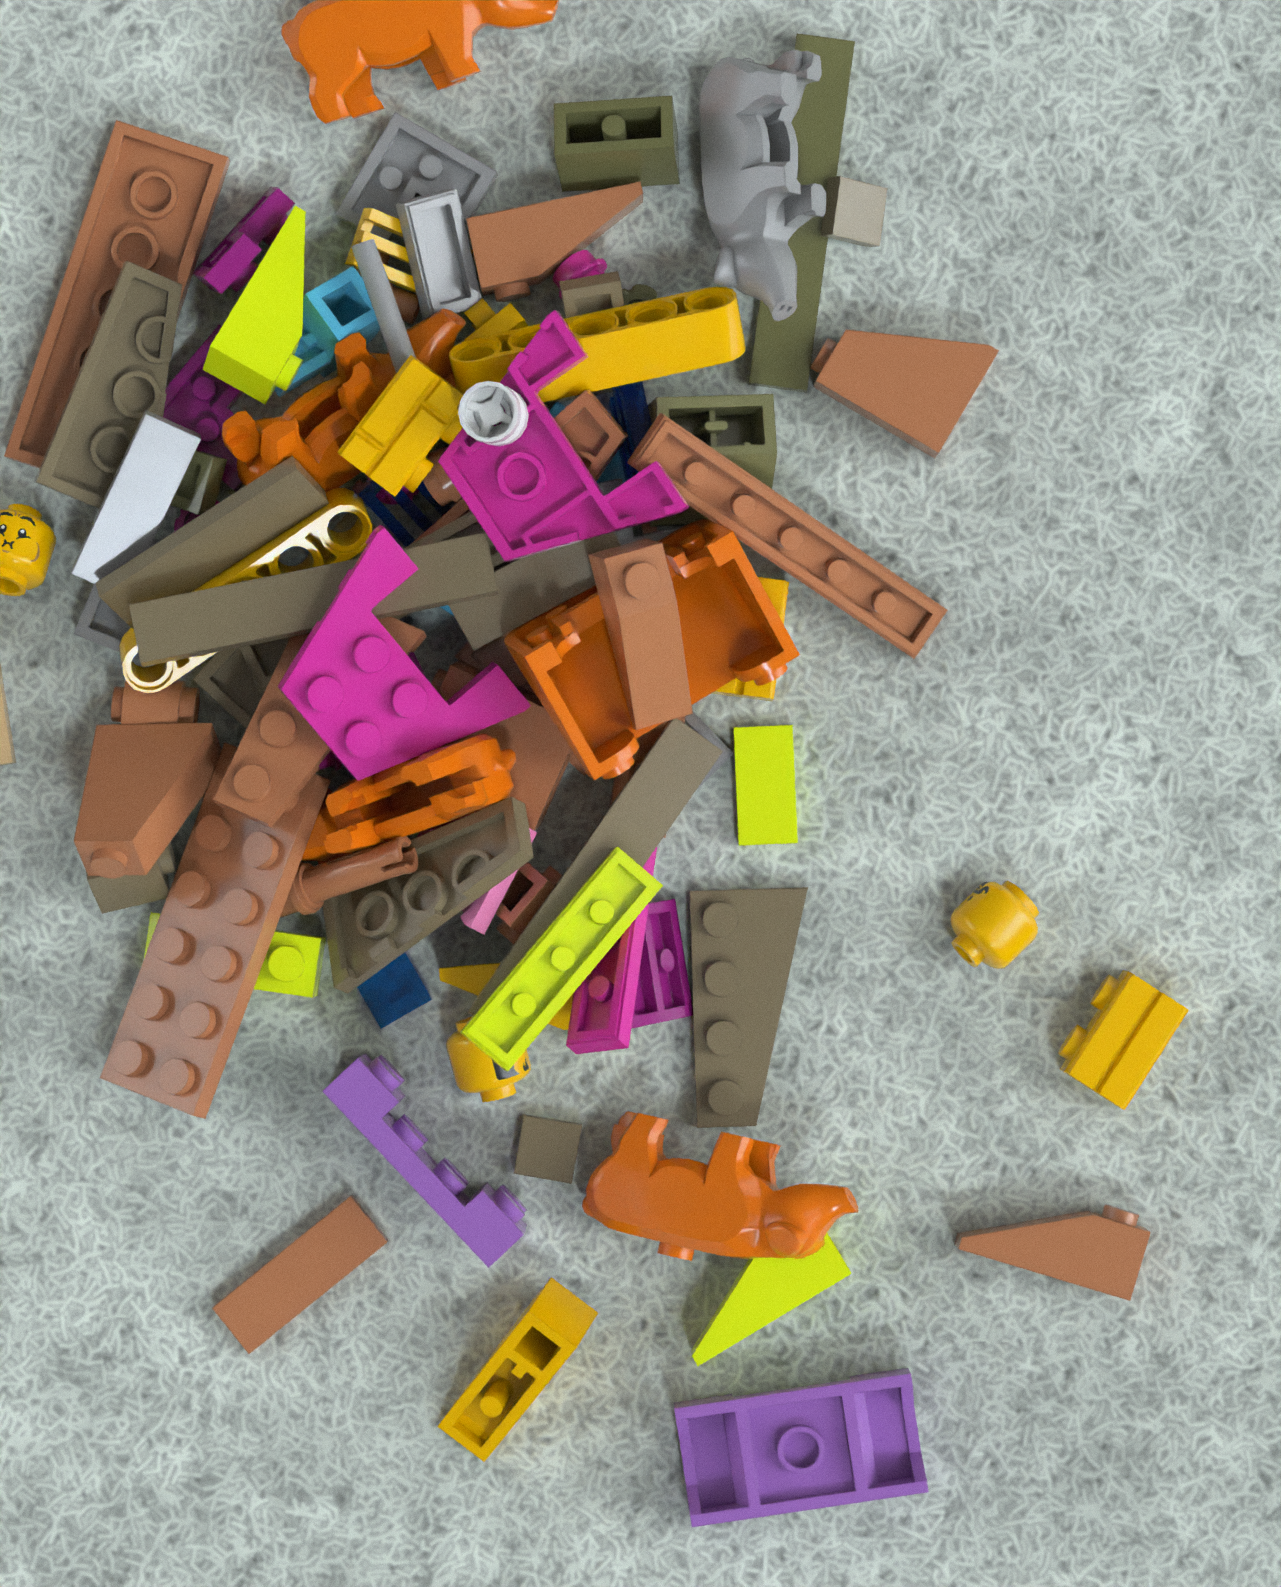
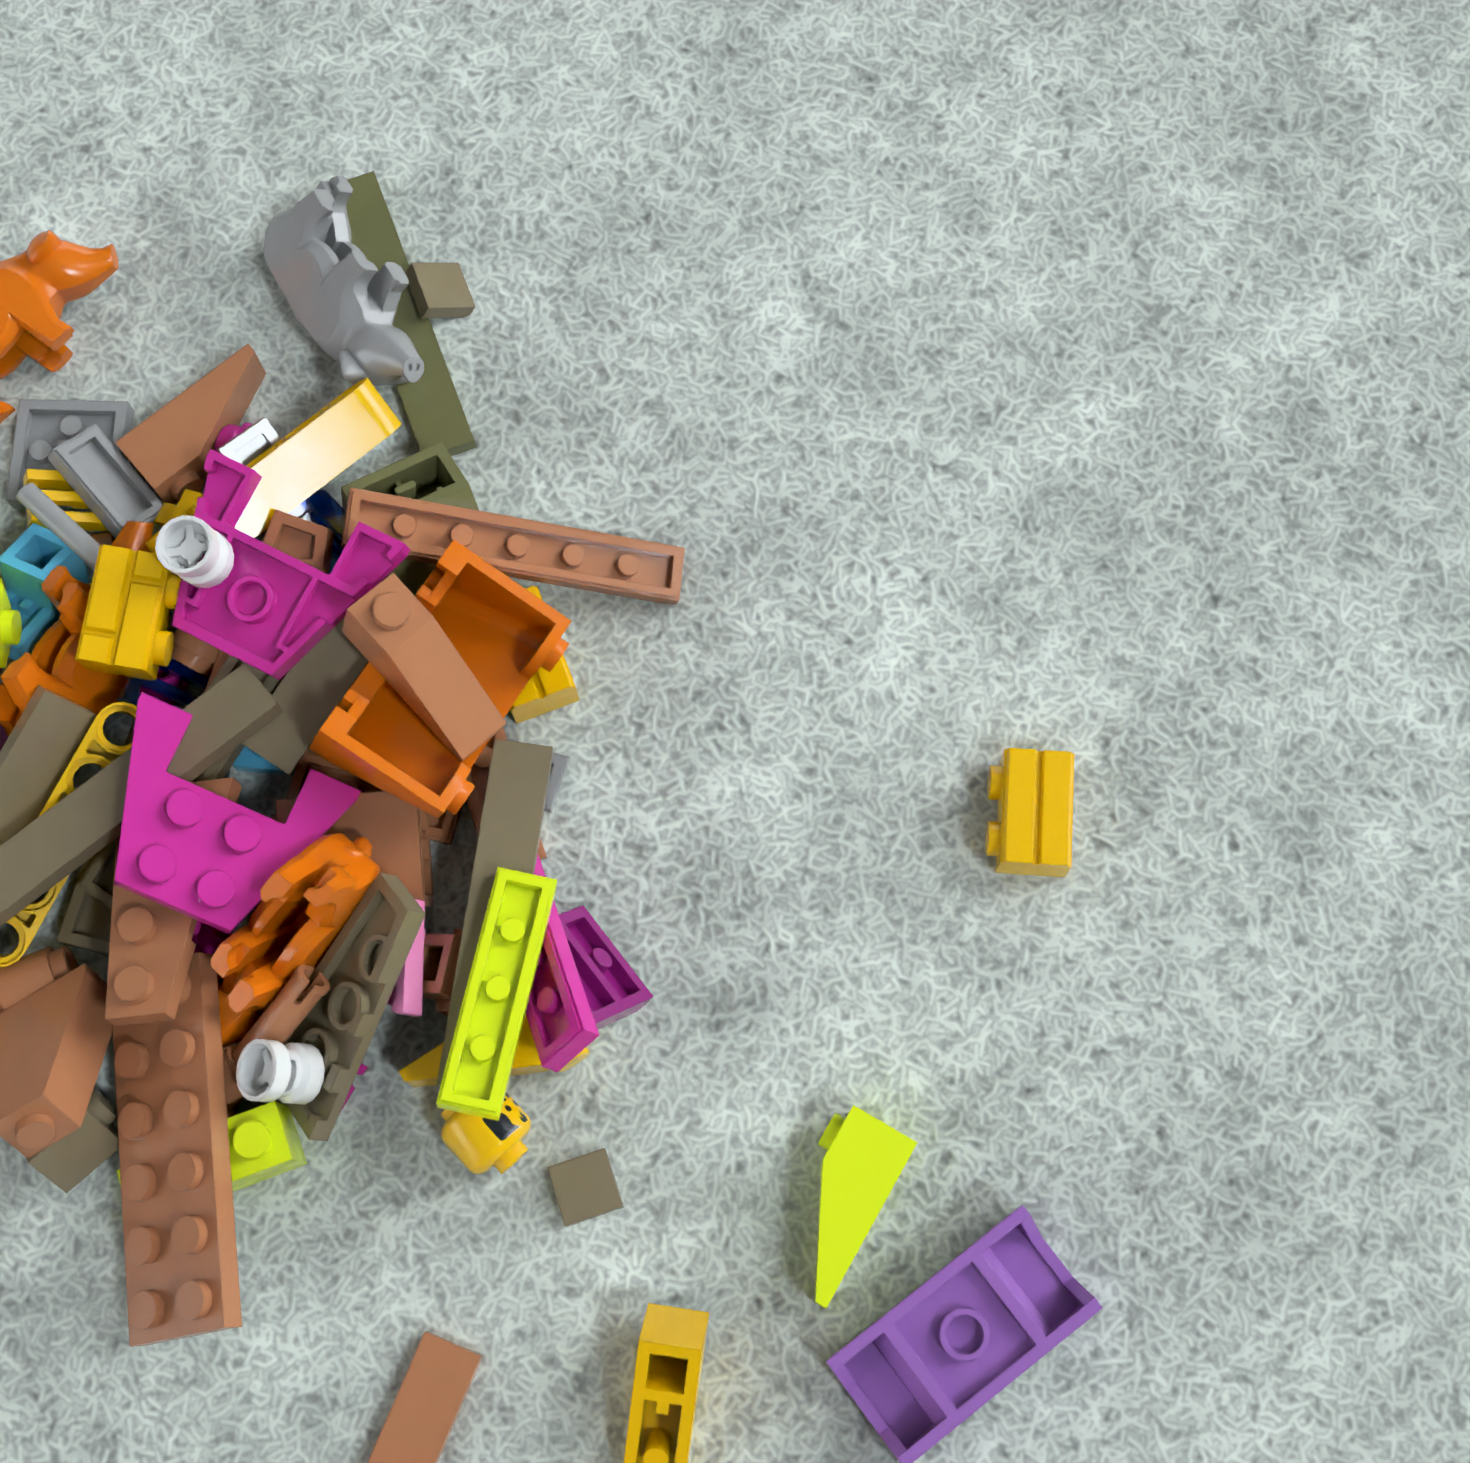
camera: 30 degrees left, 15 degrees down
(338, 919) = (280, 1072): none -> white wheel
(394, 991) = (371, 1119): clear blue tile -> none
(485, 1221) = (395, 1224): medium lavender piece -> none
(616, 143) = (213, 325): olive brick -> none
(710, 1207) = (758, 1149): orange animal -> none
(739, 984) = (678, 948): dark tan wing -> none
(765, 785) = (610, 769): neon yellow tile -> none
(903, 382) = (549, 391): nougat slope -> none
(994, 924) = (869, 776): yellow head -> none
(1073, 1247) = (1108, 1011): nougat slope -> none

